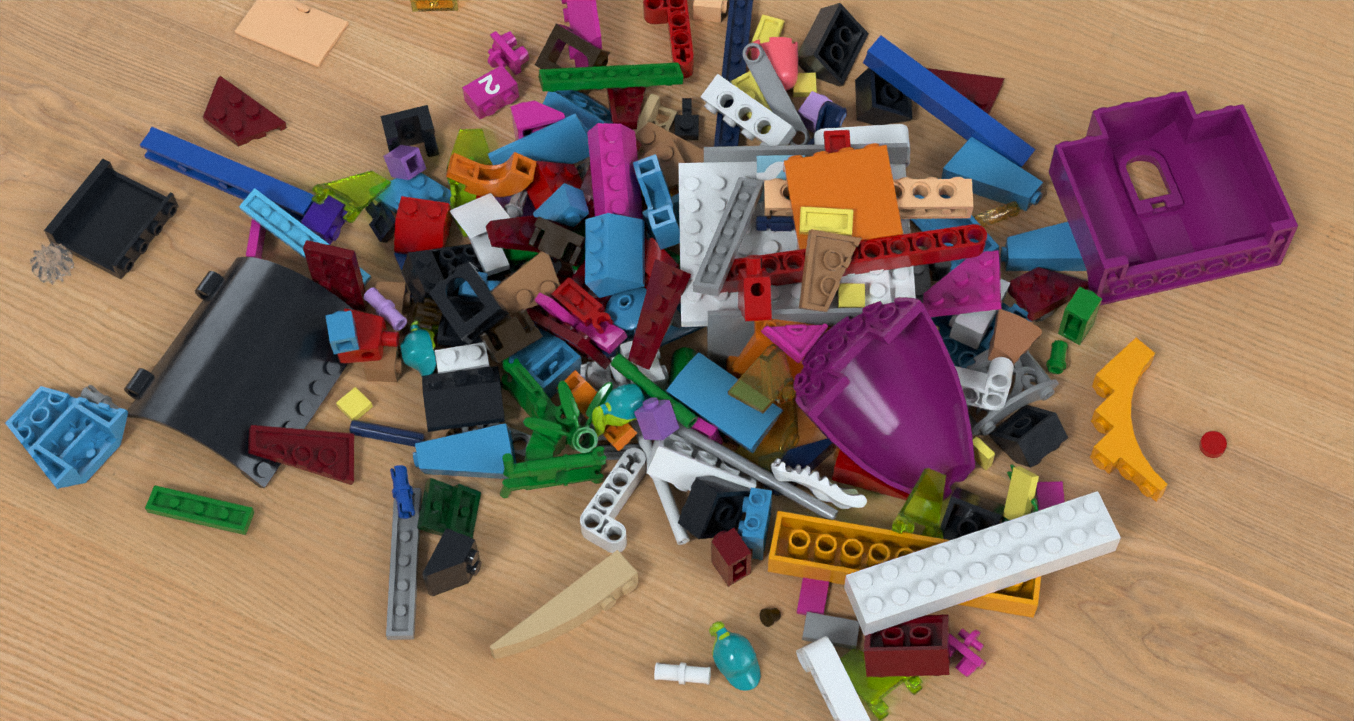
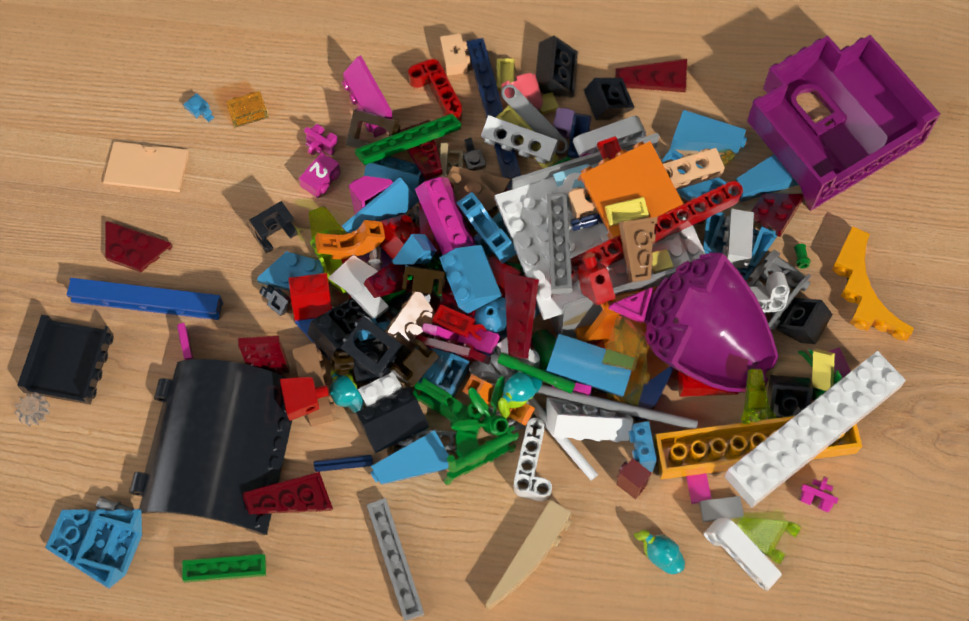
camera: 20 degrees left, 5 degrees up
(282, 224) = (207, 327): medium azure plate -> none
(325, 219) = (232, 309): dark purple brick -> none
(342, 332) = (287, 398): dark azure brick -> none
(352, 191) = (248, 283): clear neon green flag -> none
(354, 404) = (309, 448): light yellow tile -> none
(385, 309) = (309, 369): lavender pin -> none
(402, 492) = (375, 506): blue pin -> none
(404, 162) = (277, 249): medium lavender brick -> none
(449, 508) = (412, 507): dark green slope -> none
(451, 563) = (434, 548): black slope -> none
(656, 419) = (547, 394): medium lavender brick -> none
(682, 673) = (630, 576): white pin -> none
(712, 506) = (608, 446): black slope -> none
(769, 616) = (674, 513): dark brown piece -> none
(819, 487) = (676, 405): white animal -> none
(910, 648) = (786, 506): dark red slope -> none
(944, 101) = (656, 89): blue tile -> none
(967, 288) = (728, 228): dark pink plate -> none
(982, 453) = (780, 344): light yellow tile -> none
(1012, 336) = (770, 253): nougat slope -> none
(1079, 315) = (808, 221): green brick -> none
(1213, 444) = (929, 287): red tile -> none

